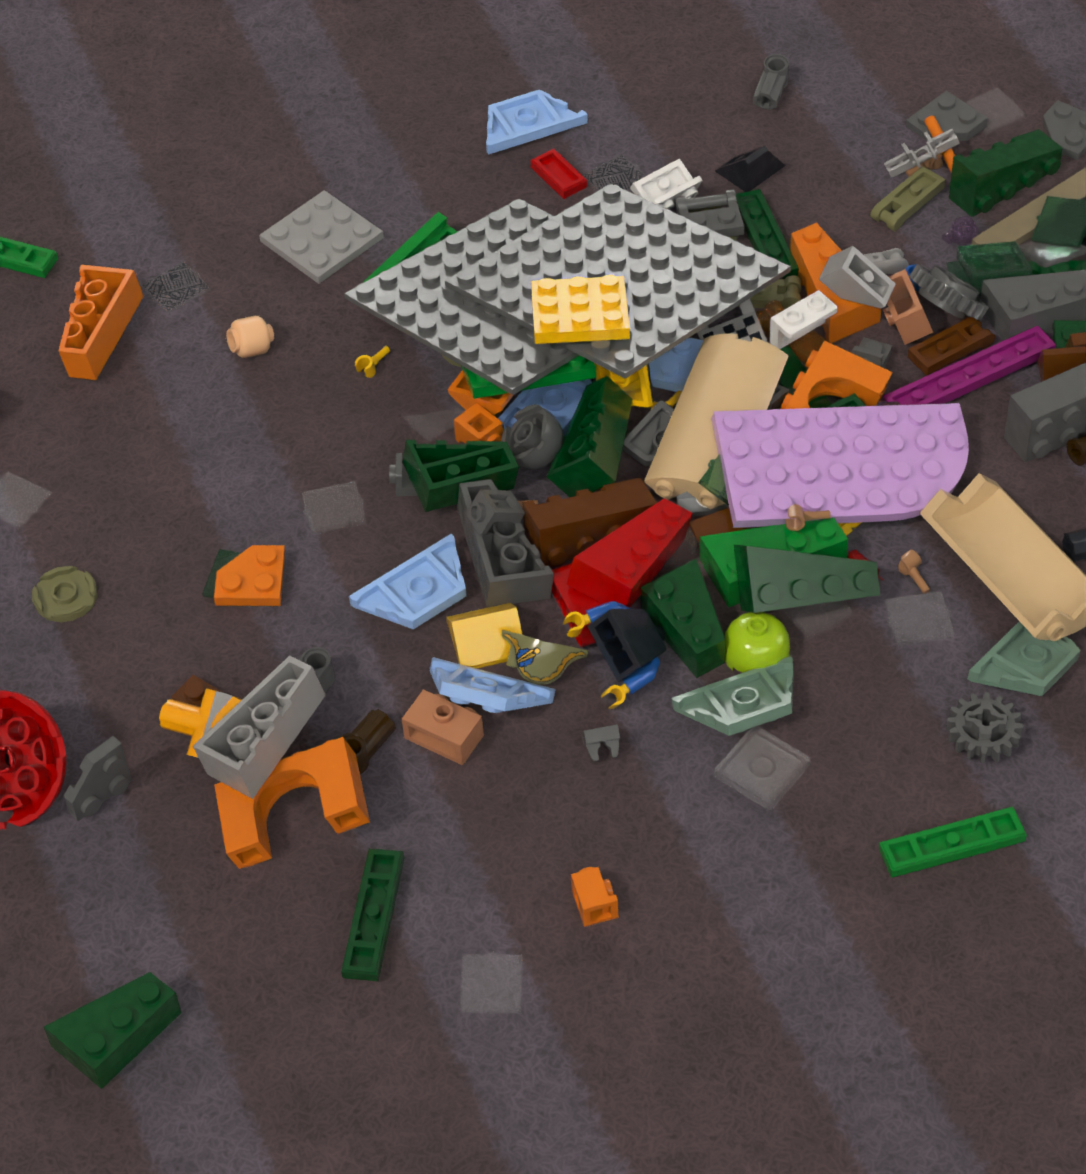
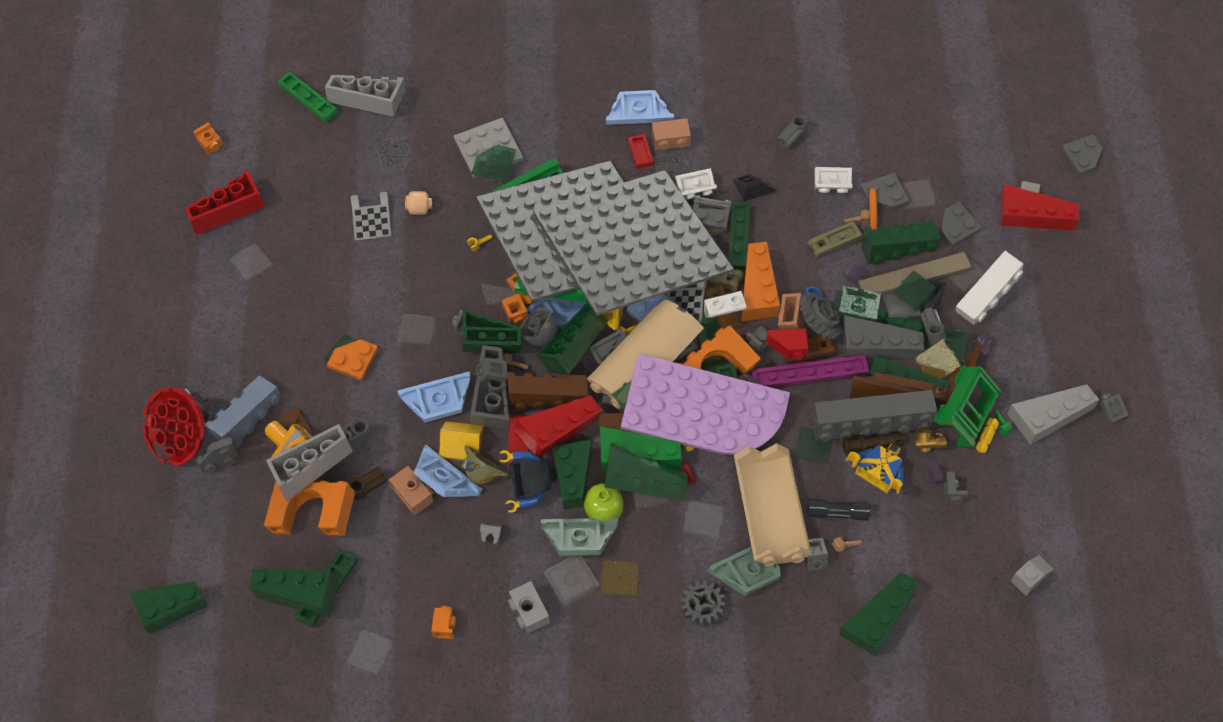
camera: 20 degrees right, 10 degrees up
(64, 594) = (256, 335): olive tile -> none
(92, 217) = (367, 94): none -> light grey wedge
(98, 318) = (339, 163): orange wedge -> none
(110, 702) = (244, 412): none -> sand blue wedge
(184, 385) = (371, 221): none -> light grey flag
(326, 925) = (298, 589): none -> dark green wedge
(345, 249) = (494, 163): none -> clear green plate
(580, 309) = (593, 260): yellow plate -> none
(595, 135) = (671, 134): none -> nougat brick
(712, 809) = (532, 619): none -> light grey brick
(801, 516) = (656, 435): medium nougat hand -> none
(835, 741) = (619, 578): none -> clear yellow piece
(857, 278) = (766, 292): light grey slope -> none
(862, 124) = (833, 179): none -> white bracket
(889, 261) = (796, 278): light grey bar -> none
(908, 566) = (713, 483): medium nougat hand -> none
(910, 158) = (848, 213): light grey piece -> none
(922, 340) = (789, 342): none -> red slope
(952, 842) = (651, 665): green plate -> none
(1024, 475) = (811, 449): none -> clear green piece

